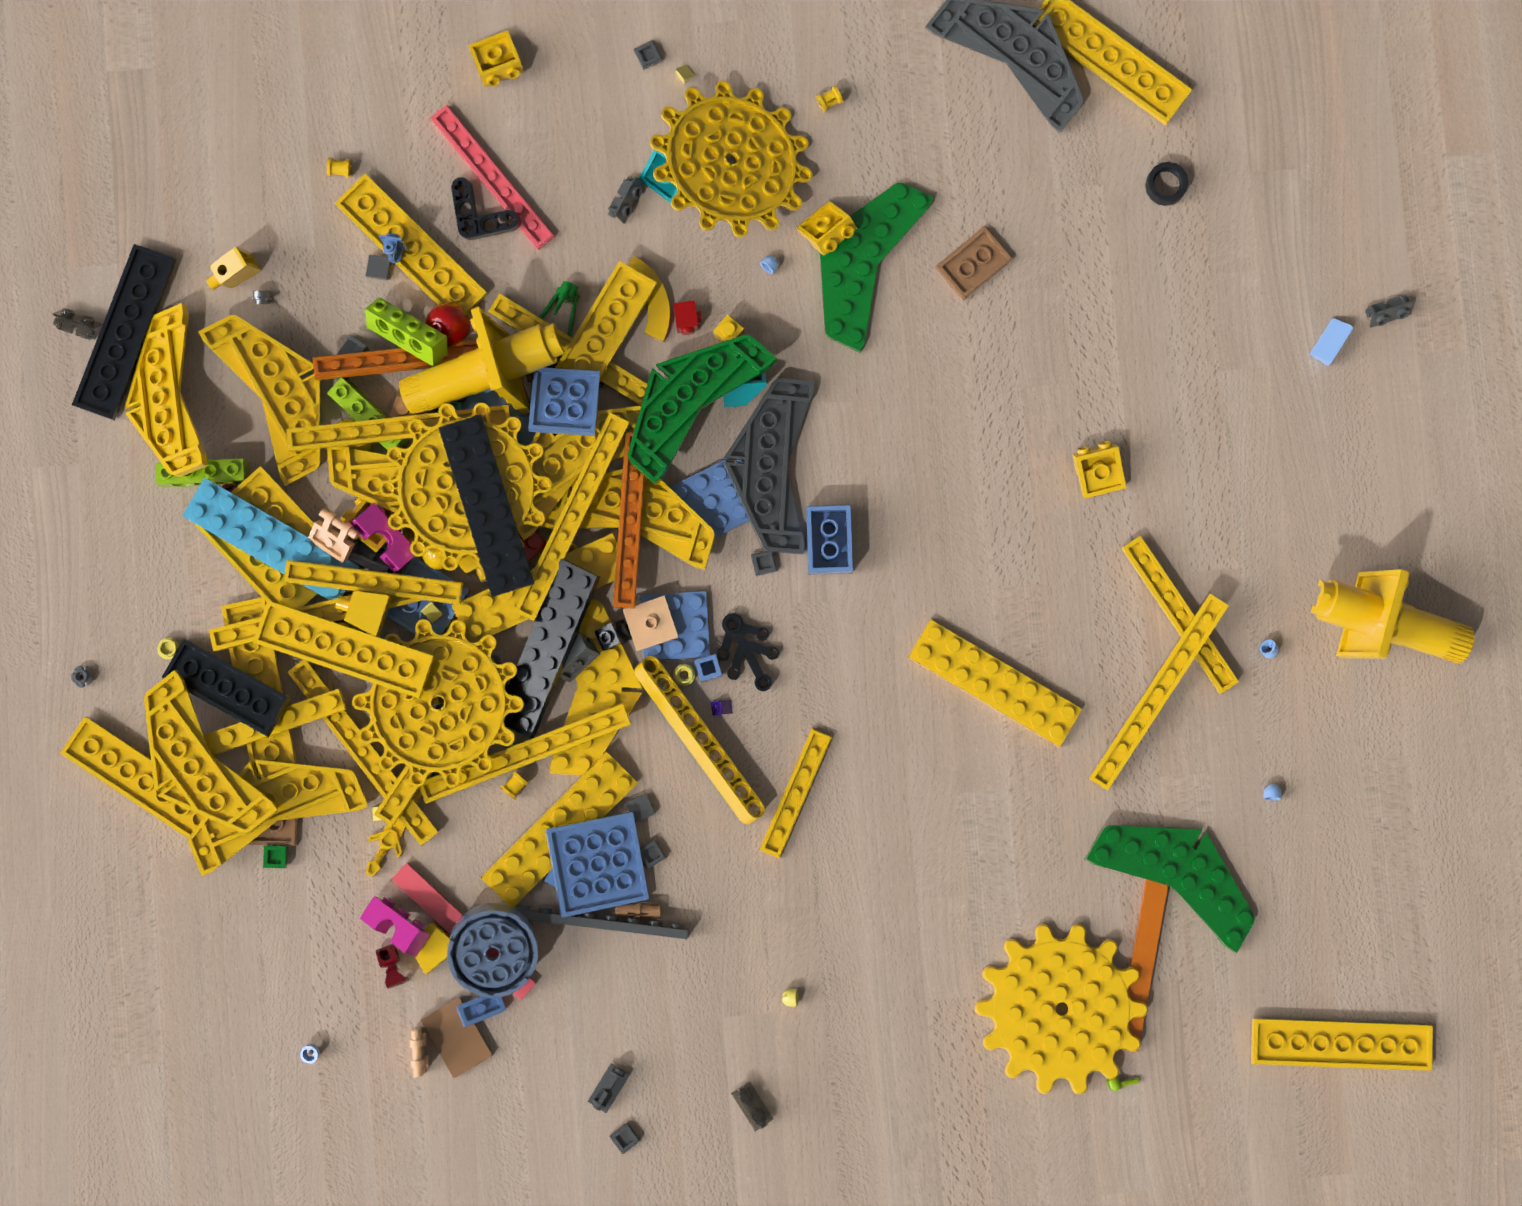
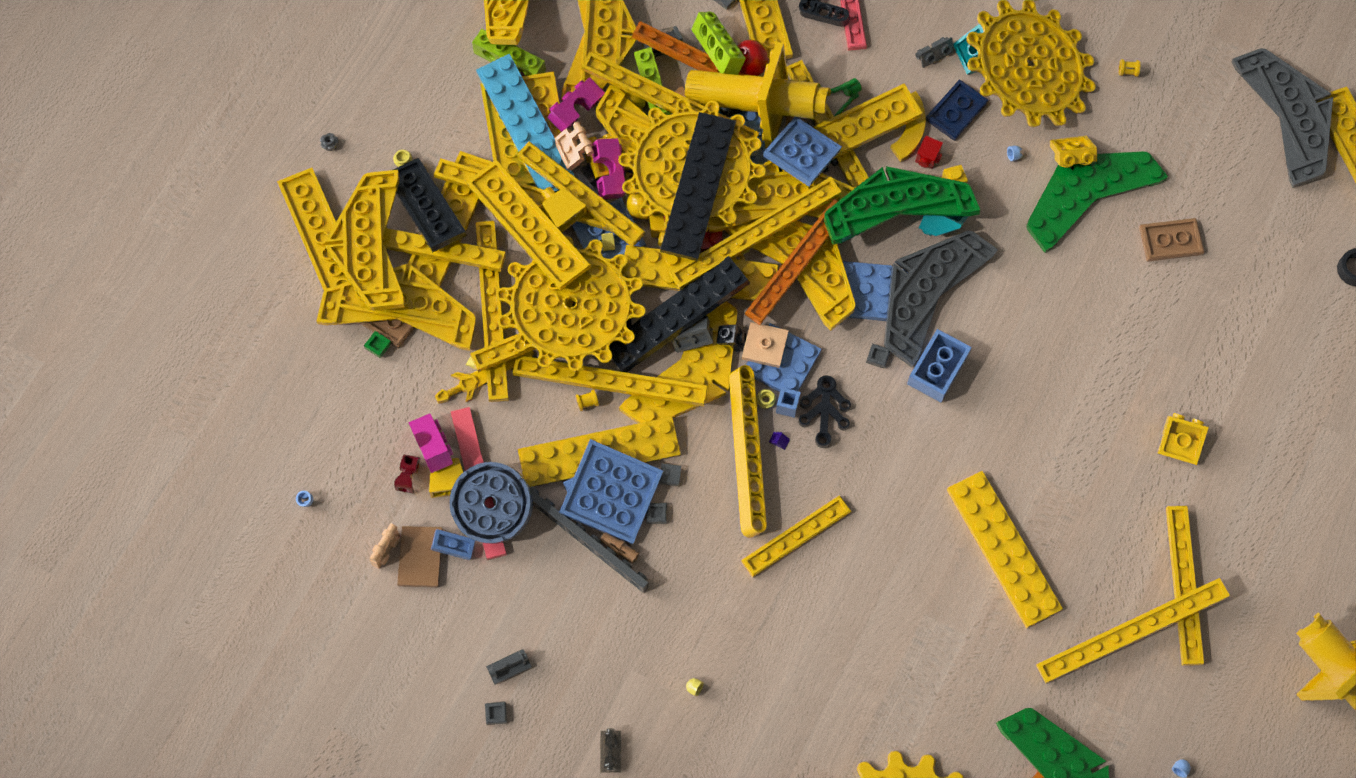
camera: 30 degrees right, 15 degrees down
(301, 506) = (586, 94): none -> dark pink arch
(684, 251) = (956, 110): none -> dark blue tile
(1269, 644) = (1243, 654): light blue hinge -> none

